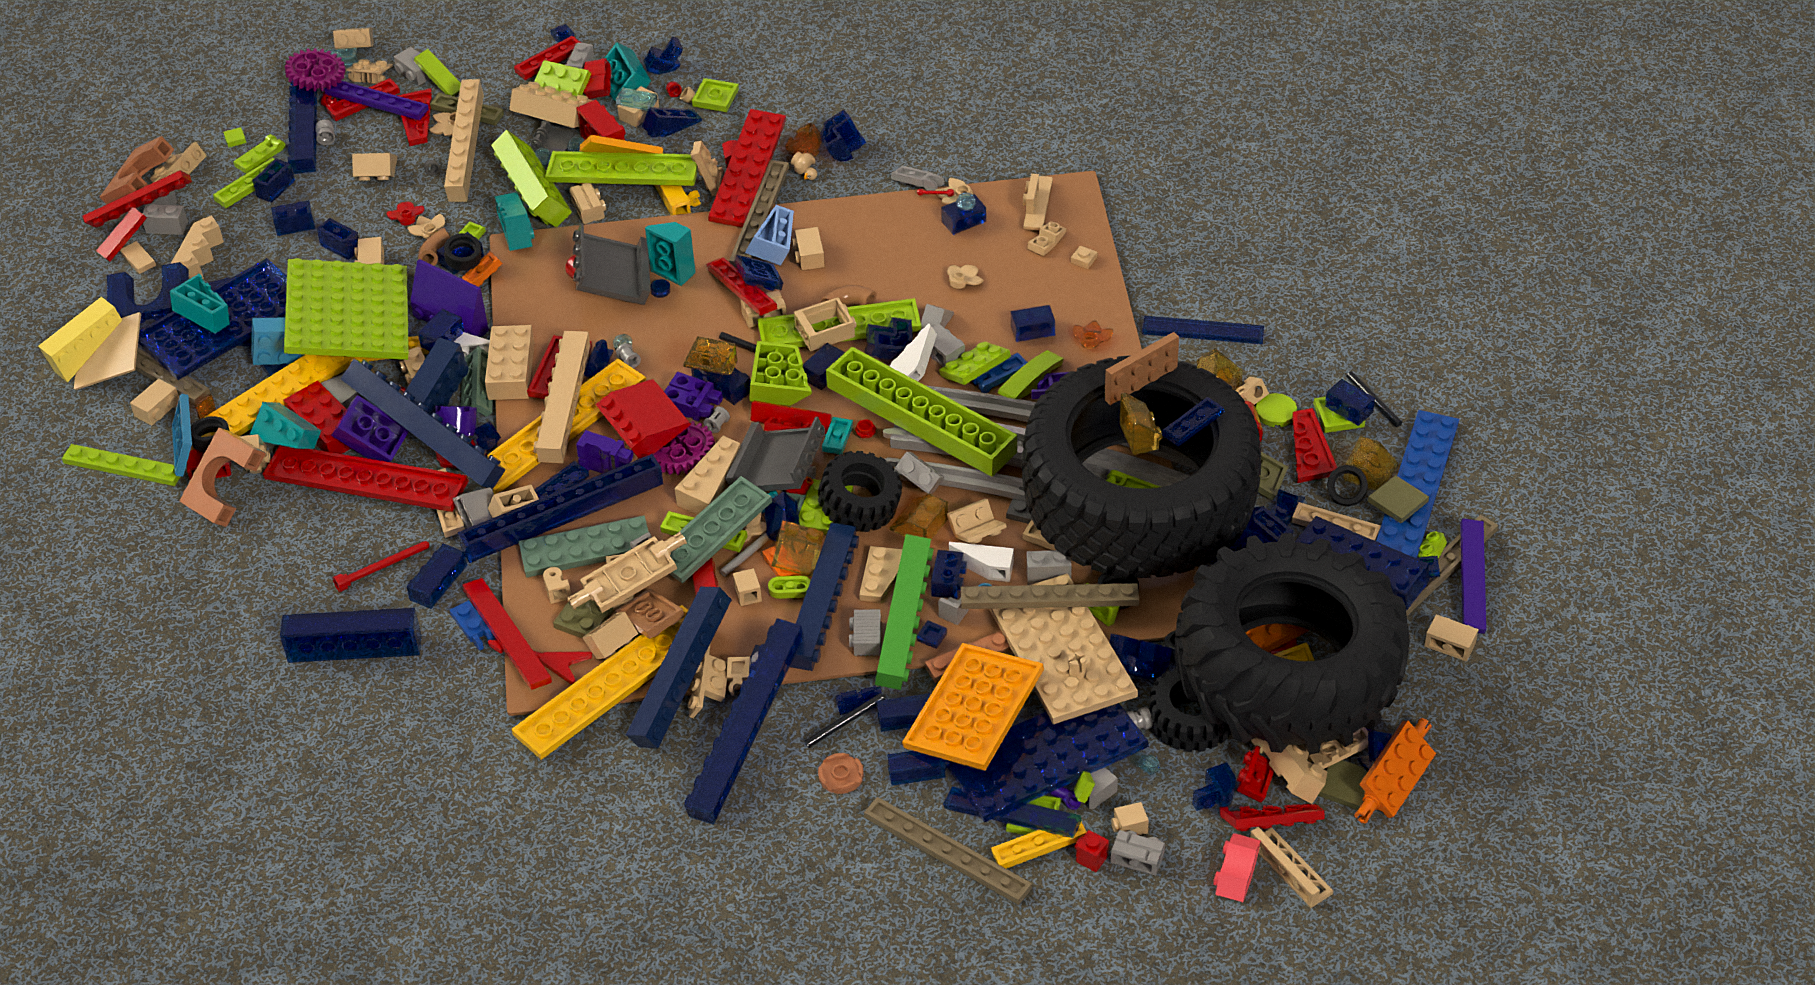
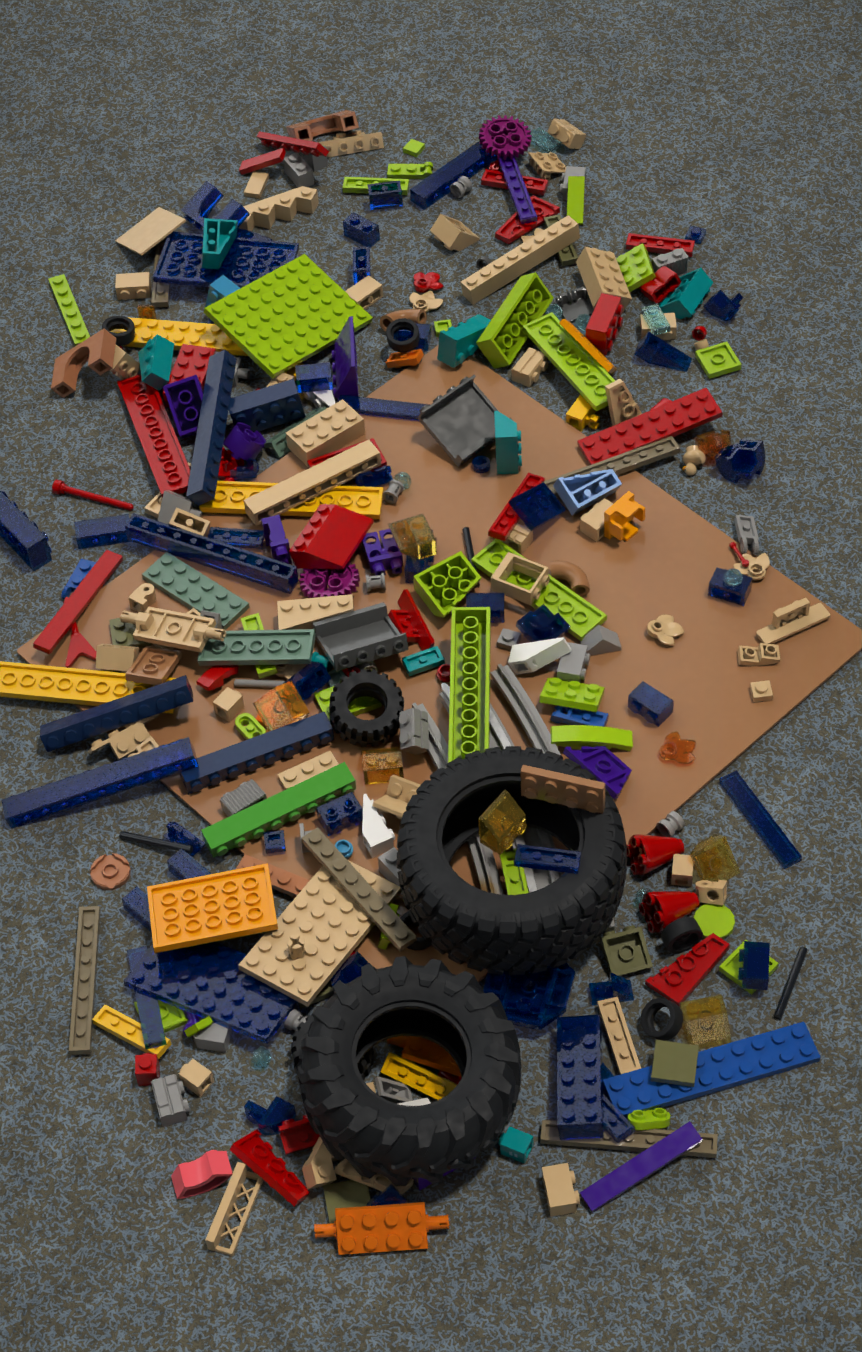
camera: 55 degrees right, 5 degrees up
(80, 338) = (141, 210): light yellow wedge -> none
(181, 435) = (119, 308): dark azure tile -> none
(532, 307) = (383, 407): none -> clear blue tile
(825, 220) = (619, 515): none -> light orange panel
(1279, 429) = (681, 935): none -> black tyre

